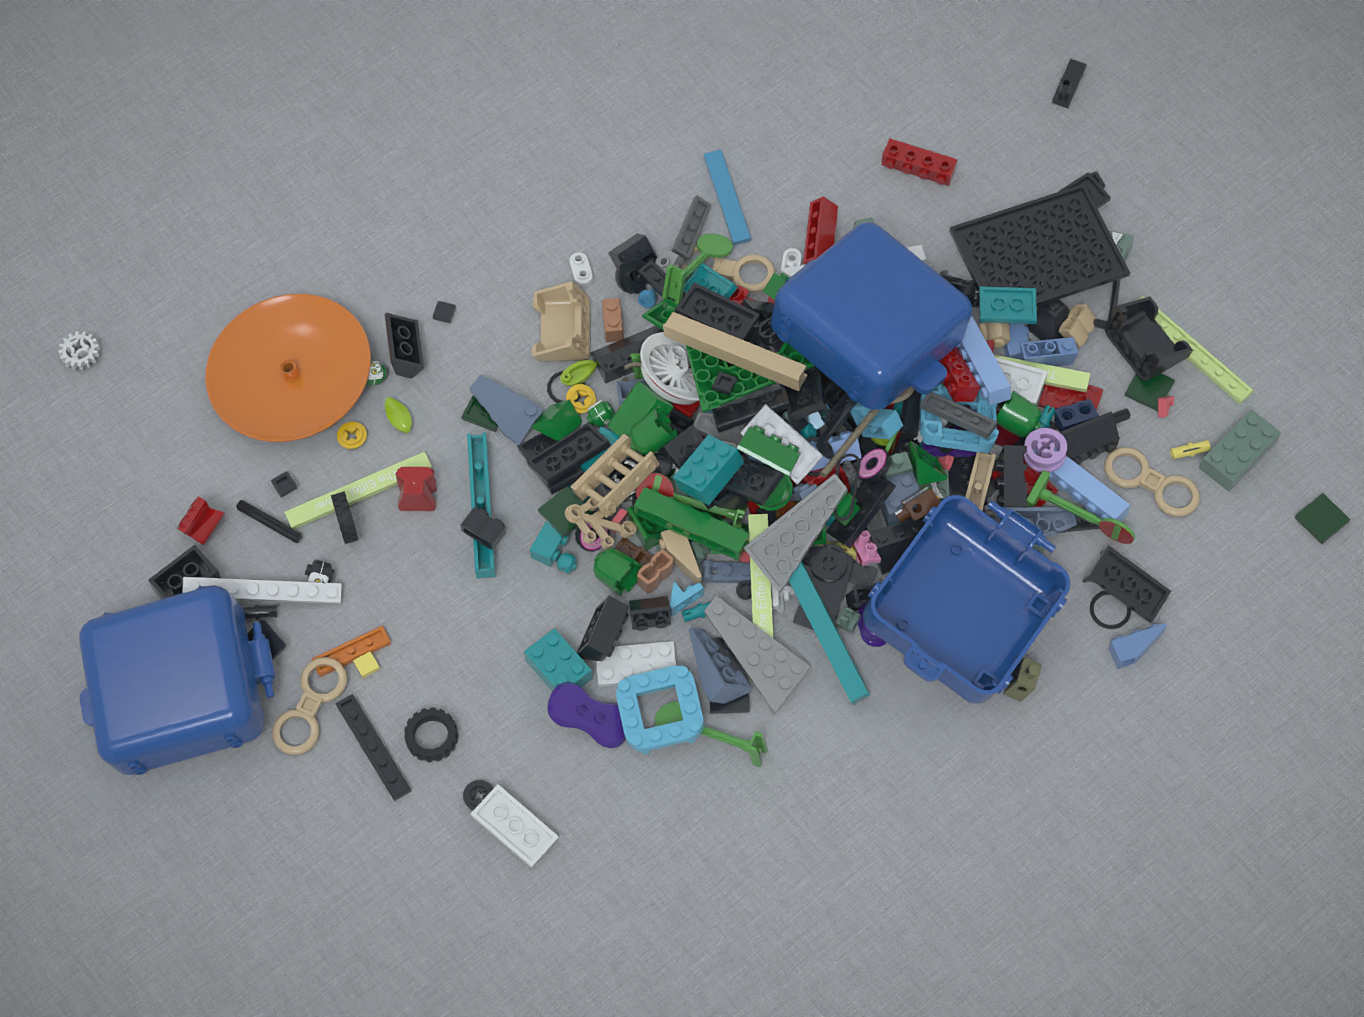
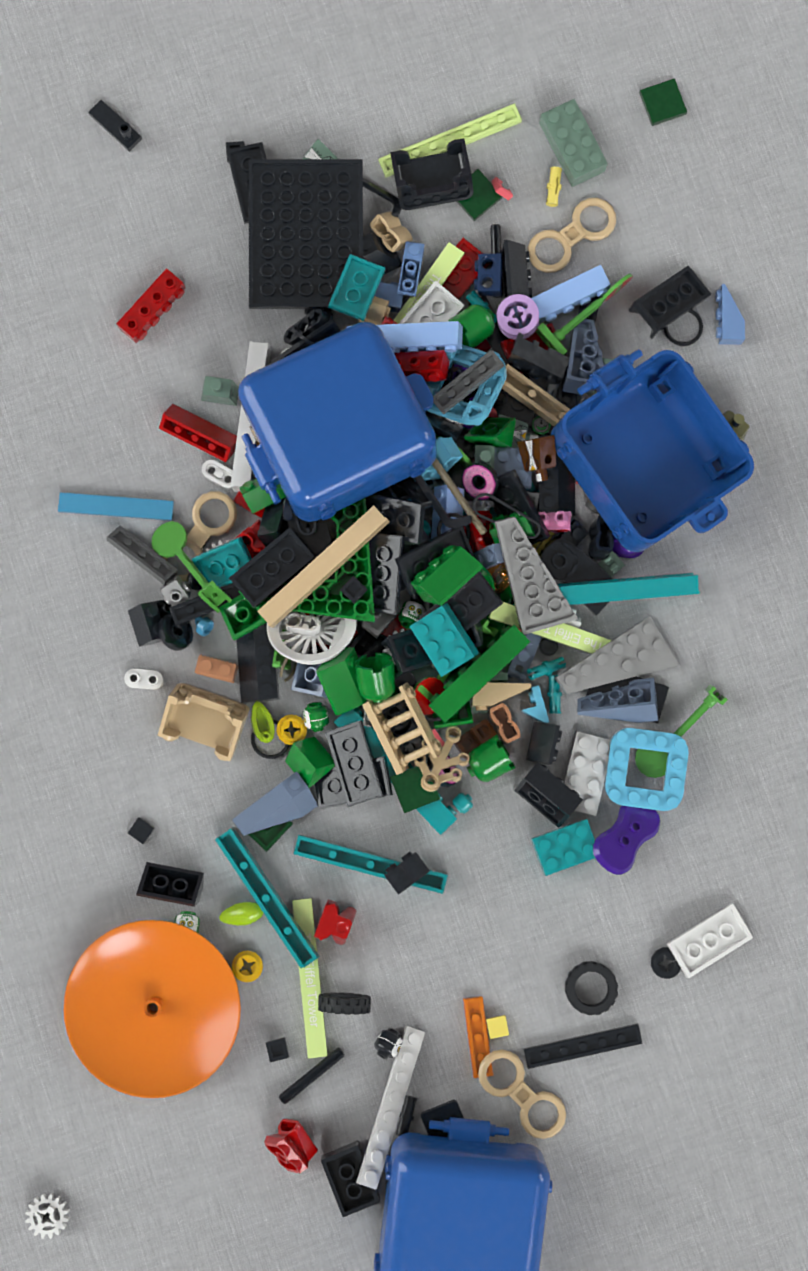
camera: 75 degrees left, 20 degrees up
(418, 428) = (267, 898): none -> teal tile
(722, 592) = (546, 668): none -> teal pin

